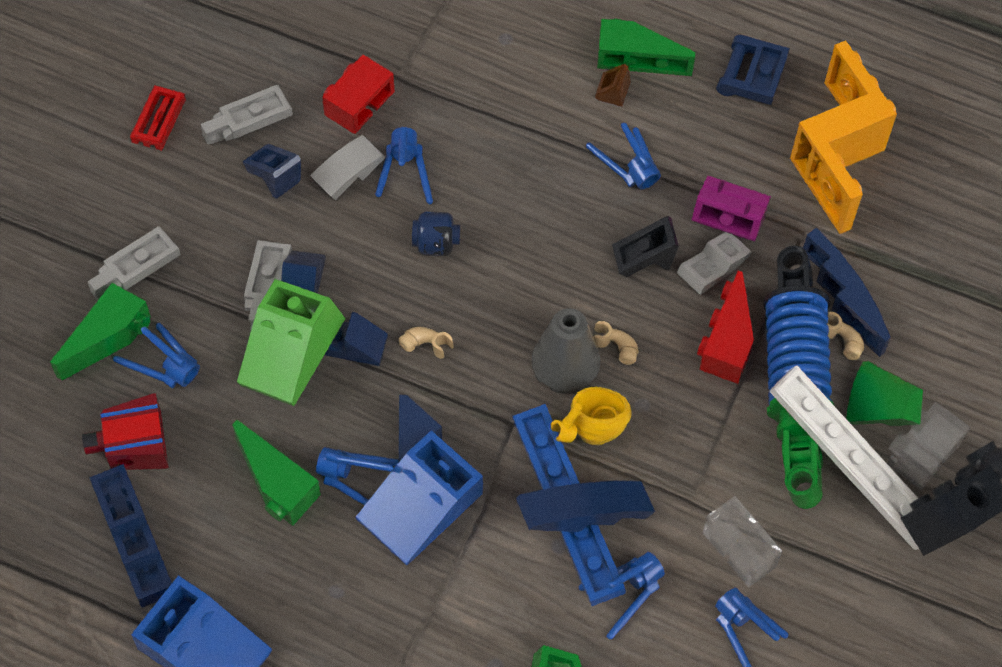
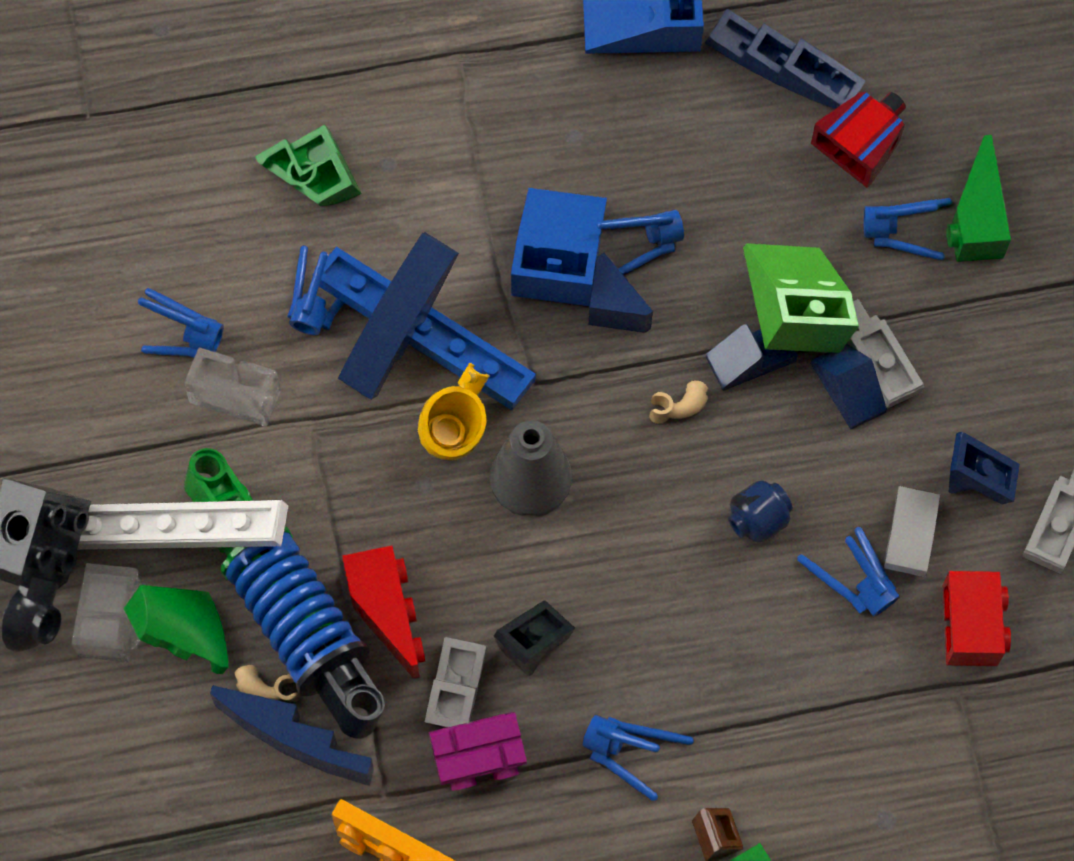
camera: 145 degrees right, 5 degrees up
(135, 262) = (1017, 292): light grey hinge -> none
(281, 482) = (705, 181): green slope -> none
(626, 344) = (482, 528): tan arm -> none

